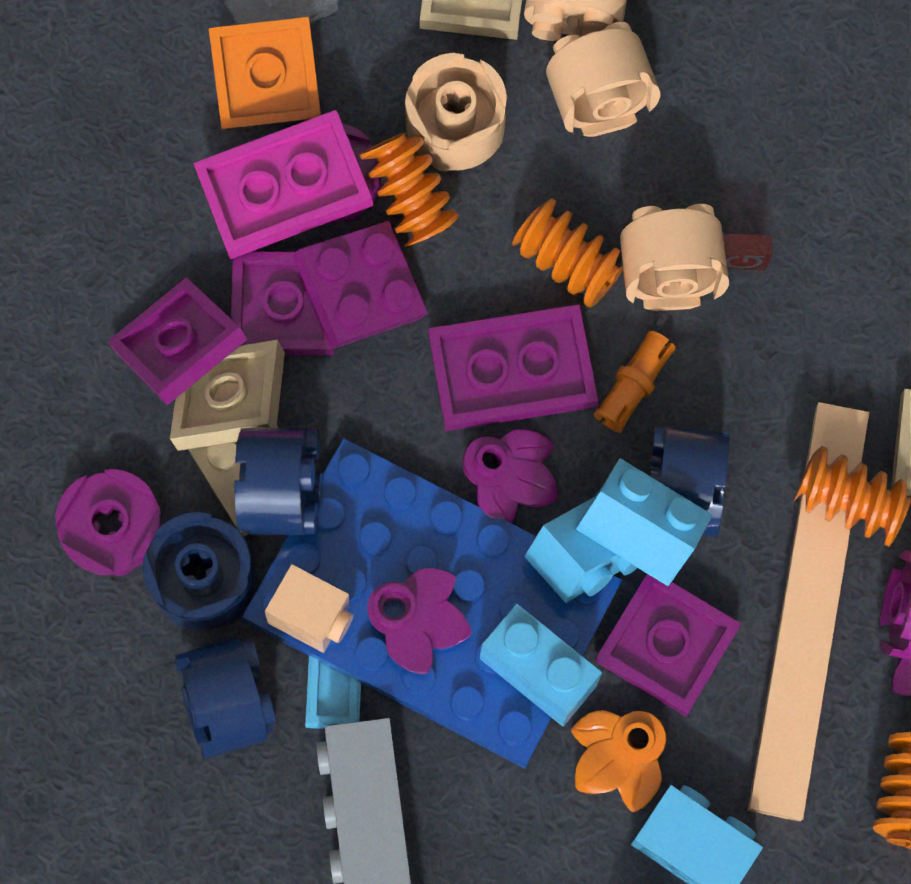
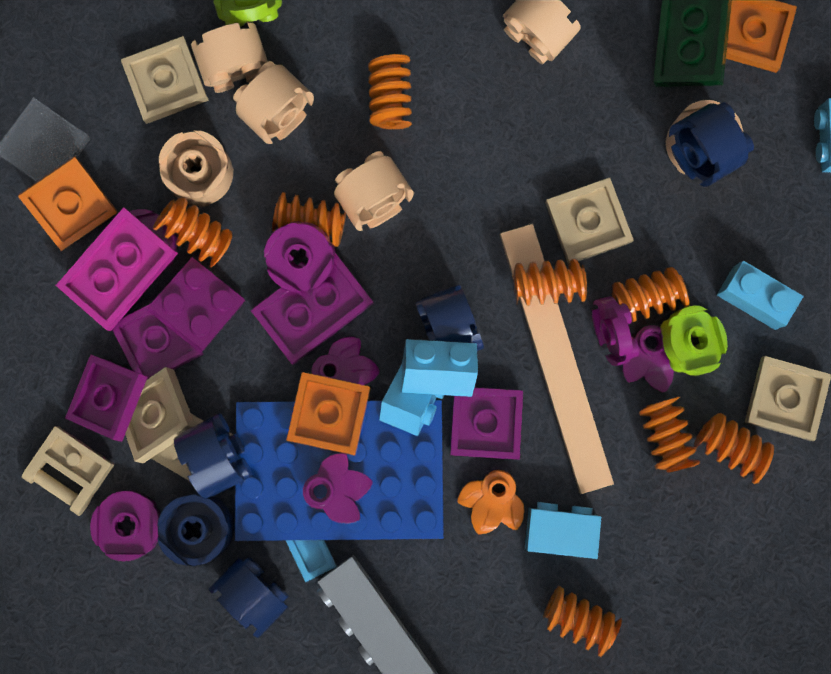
camera: 25 degrees left, 10 degrees up
(88, 402) = (73, 460): none -> tan plate
(309, 609) = (272, 520): light nougat brick -> none
(460, 512) = (328, 413): none -> orange plate
(504, 279) = (280, 260): none -> magenta plate
(540, 665) = (422, 481): medium azure brick -> none
(635, 381) = (388, 276): orange pin -> none
(747, 251) = (413, 163): clear red tile -> none
(763, 144) = (387, 91): none -> orange piece

